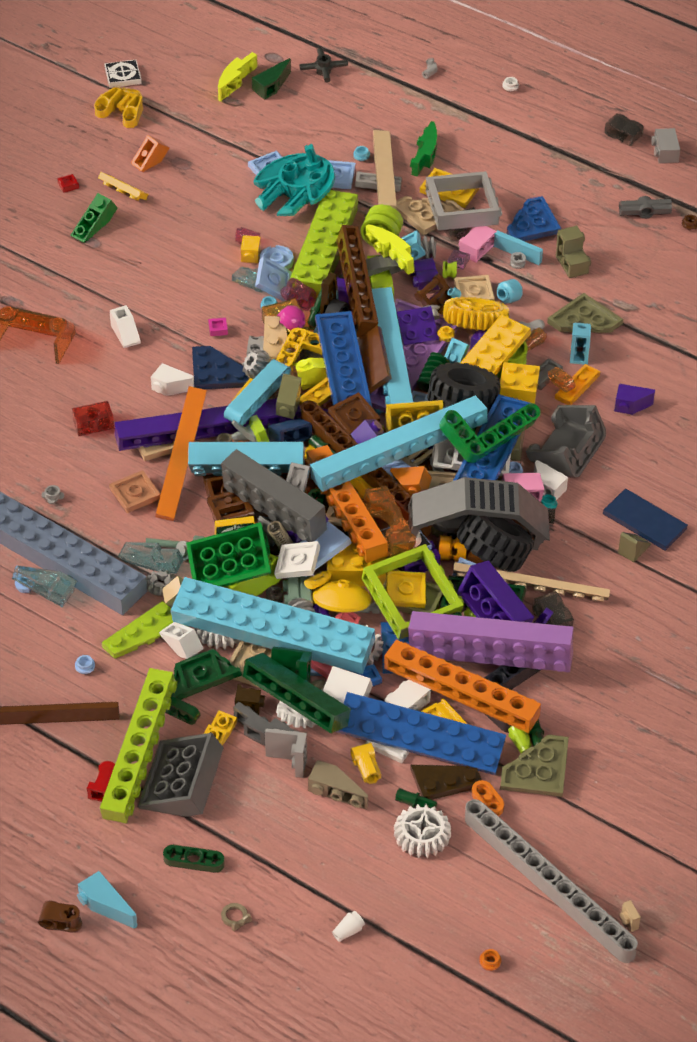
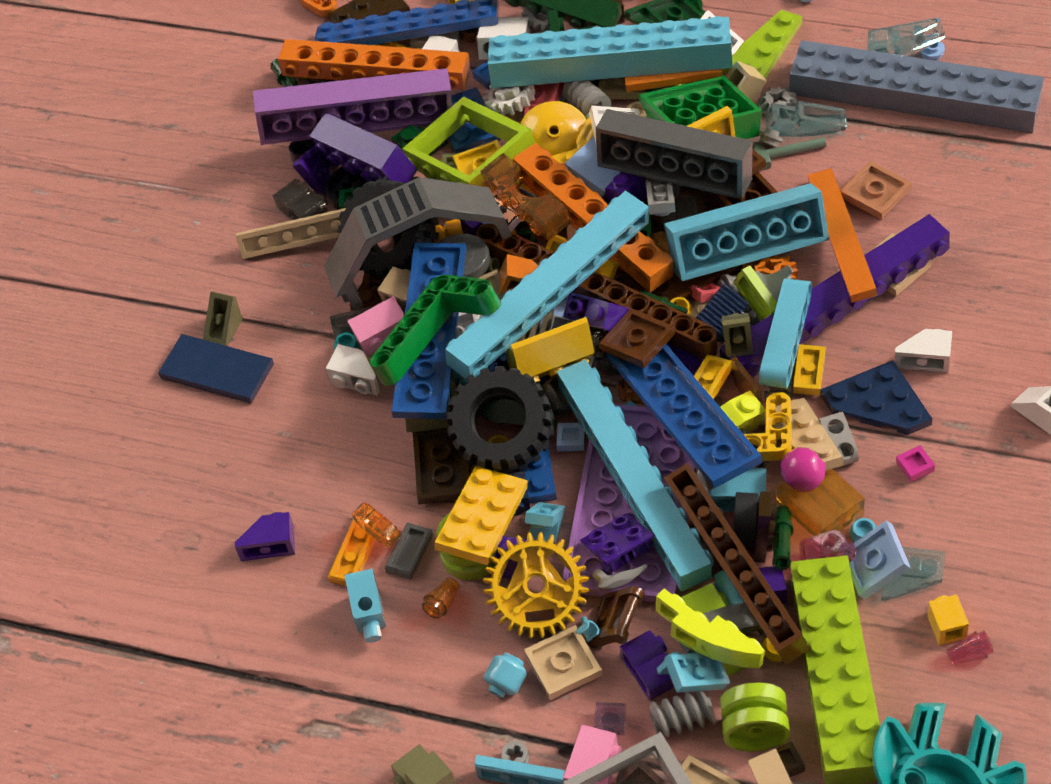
camera: 170 degrees right, 5 degrees up
(52, 494) = (975, 157): light grey plate -> none
(93, 418) = (993, 263): clear red brick -> none
(255, 362) = (817, 397): light grey gear -> none
(279, 255) = (900, 628): light blue tile -> none
(374, 358) = (650, 439): reddish brown tile -> none
(433, 361) = (564, 476): dark green piece -> none
(445, 333) = (578, 544): yellow plate -> none
(449, 270) = (615, 687): lime wheel -> none
(519, 381) = (430, 481): yellow brick -> none
(535, 324) = (452, 624): light grey arm -> none
(538, 768) = (265, 38): olive plate -> none
(574, 440) = (344, 430): dark grey windscreen -> none
(586, 311) = (375, 670): olive plate -> none

